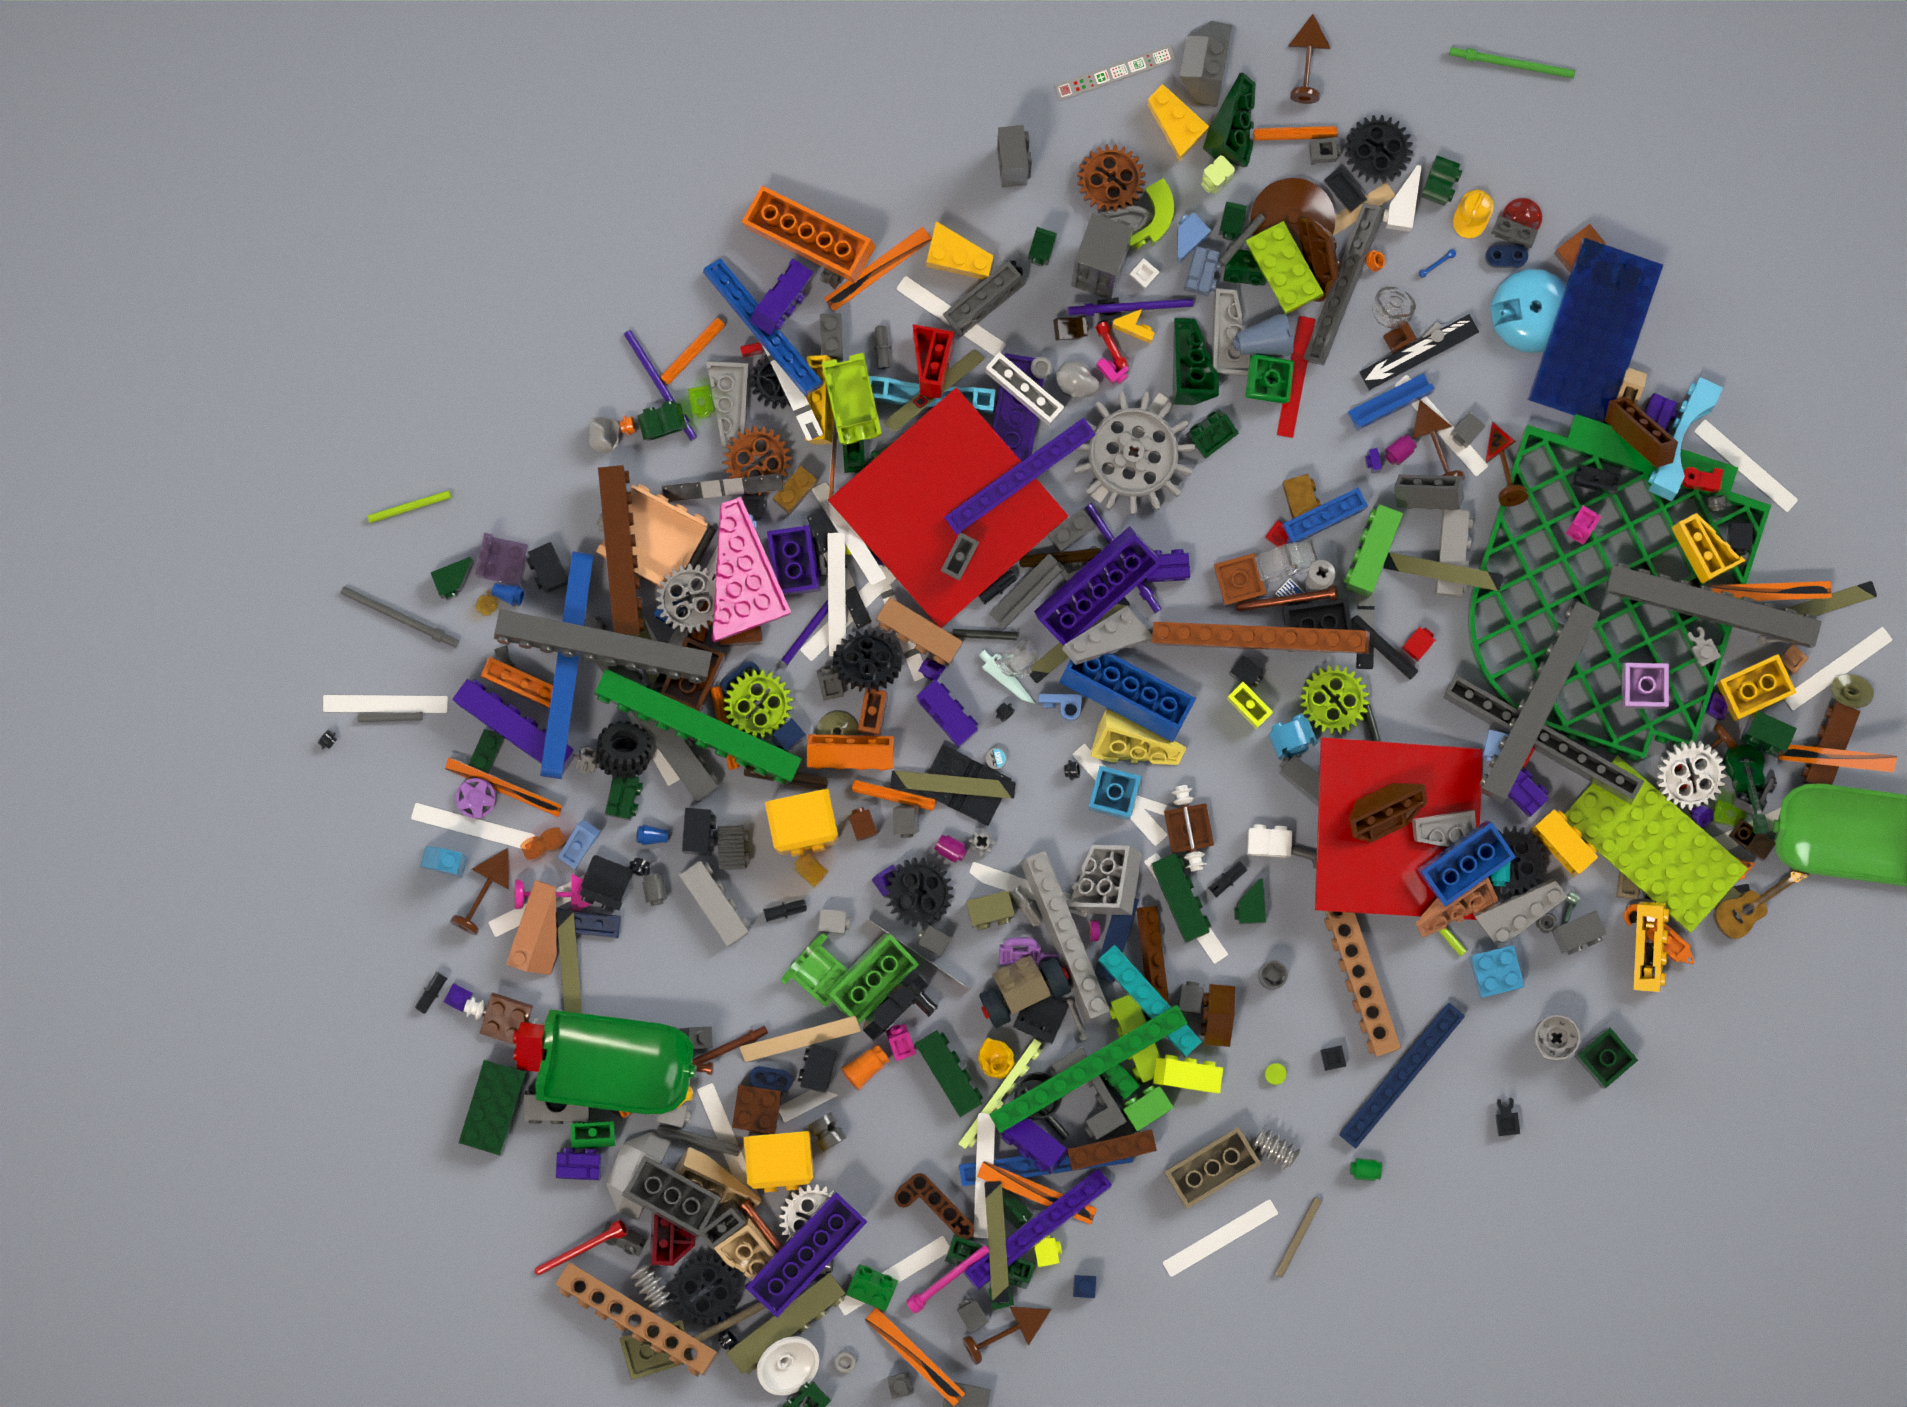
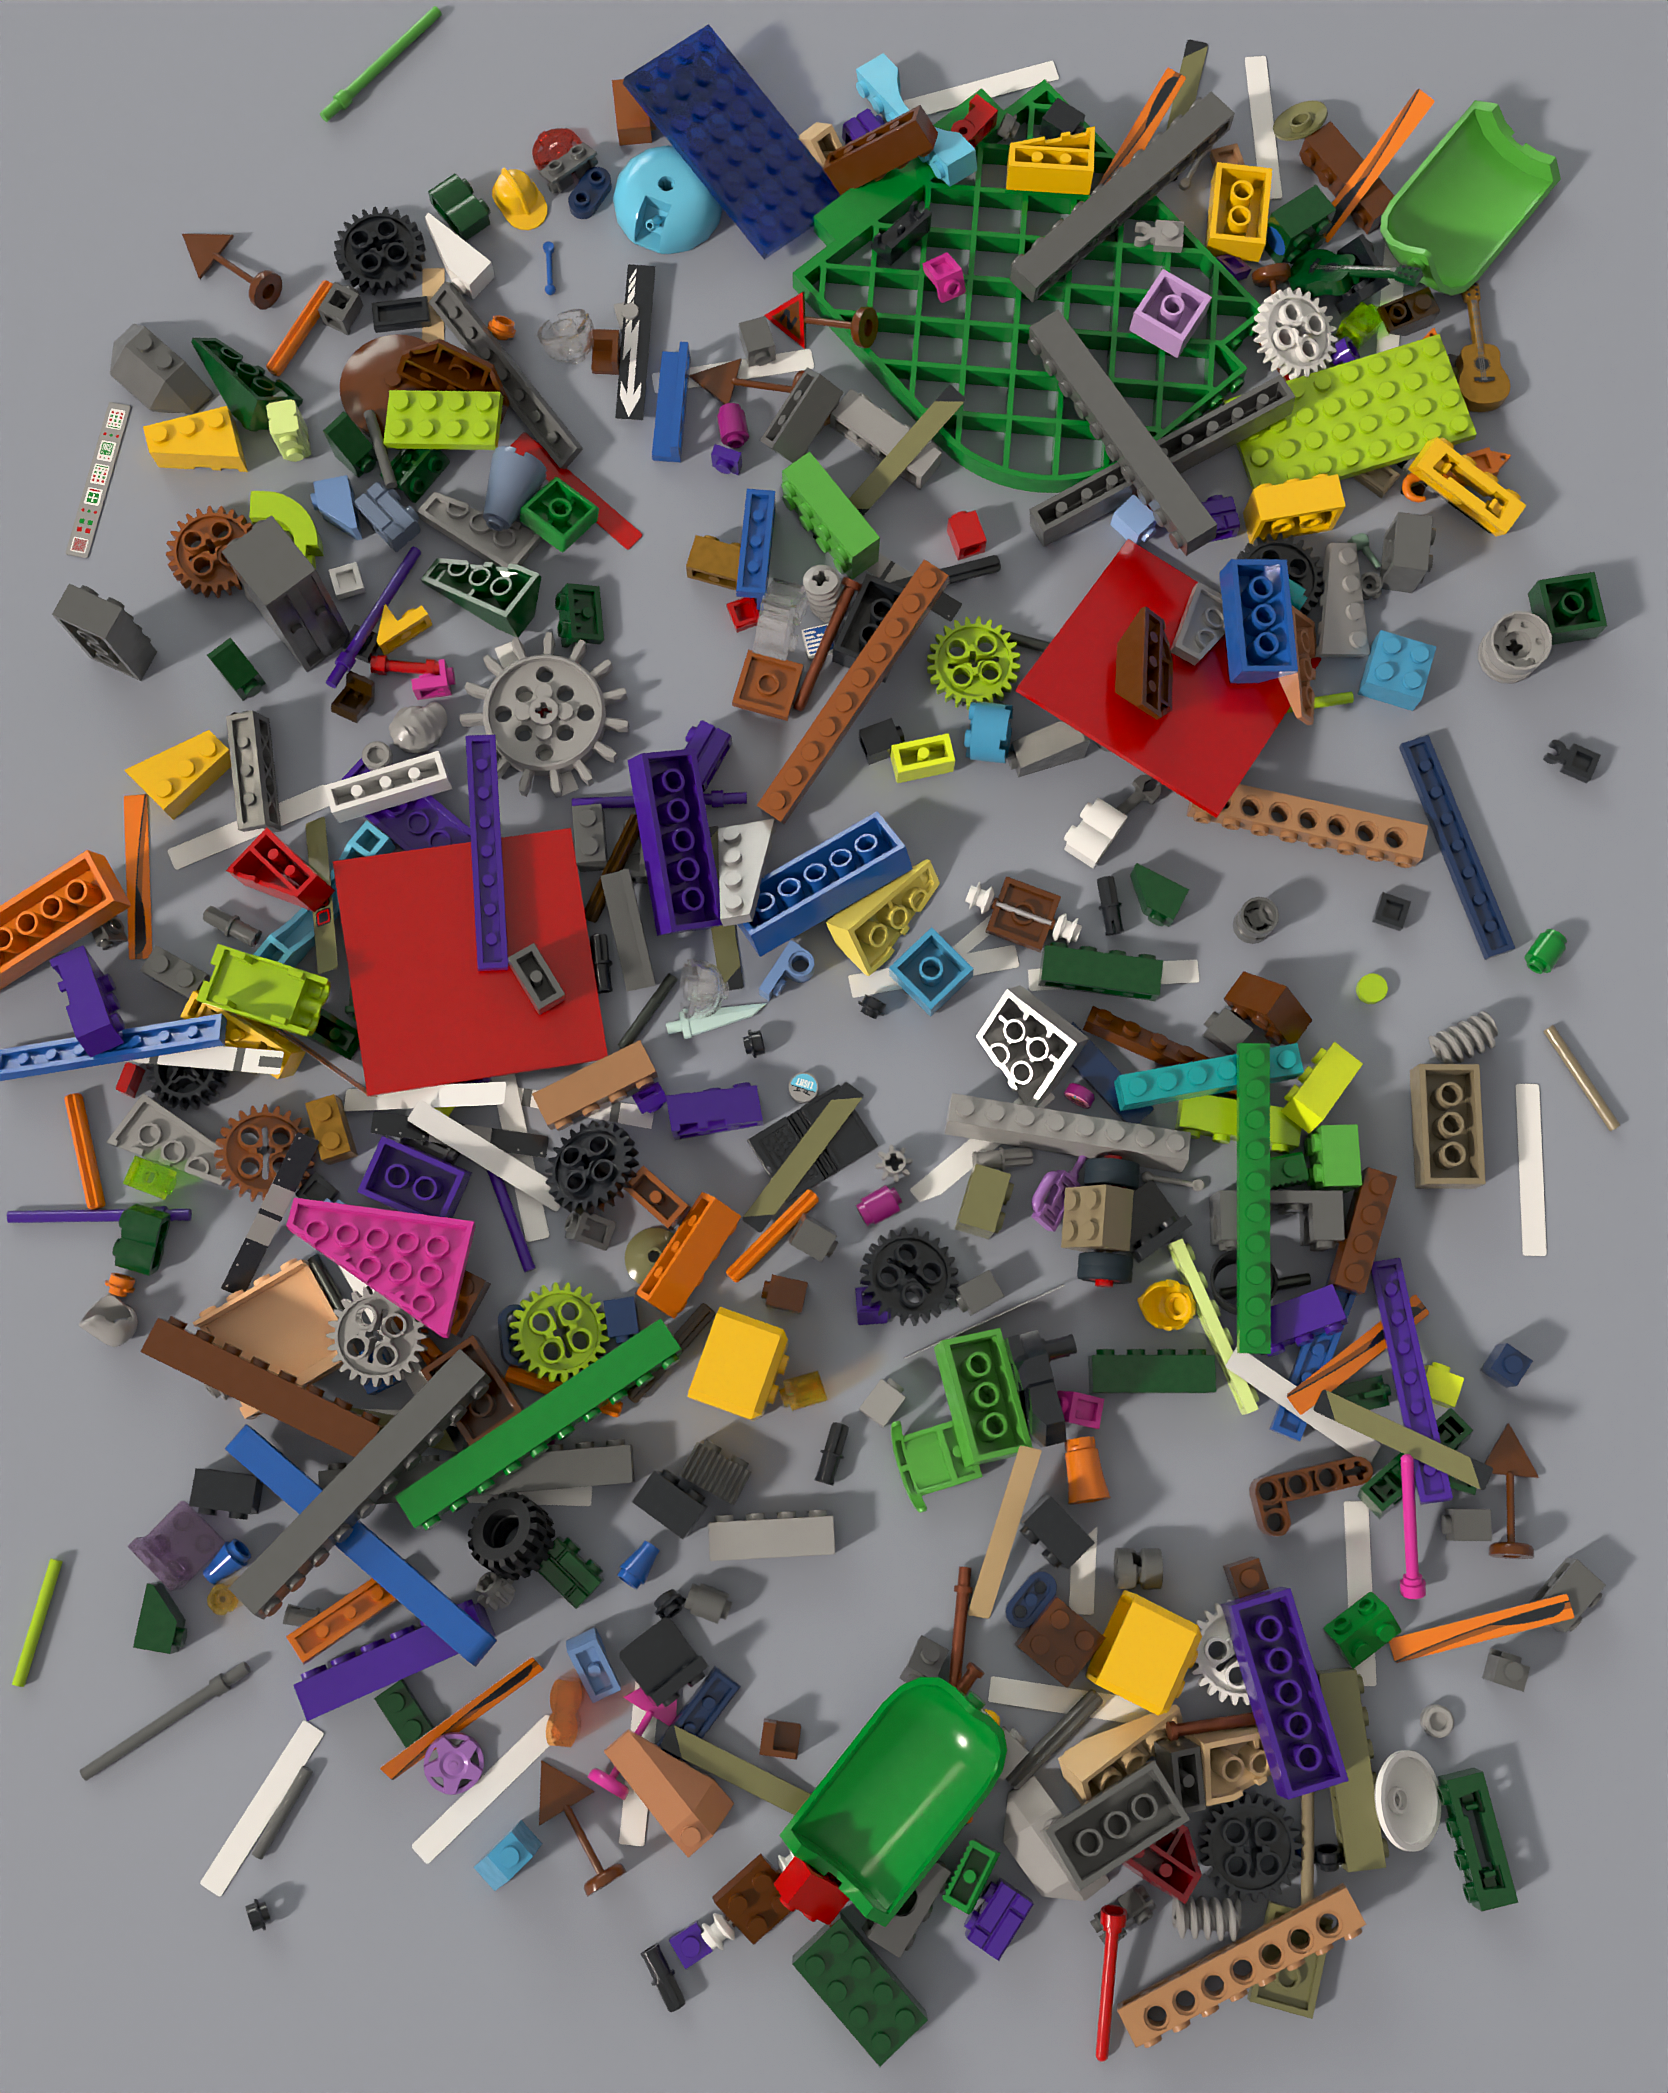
camera: 60 degrees left, 5 degrees down
(602, 979) = (780, 1739): none -> reddish brown panel
(860, 1199) = (1246, 1577): none -> reddish brown brick

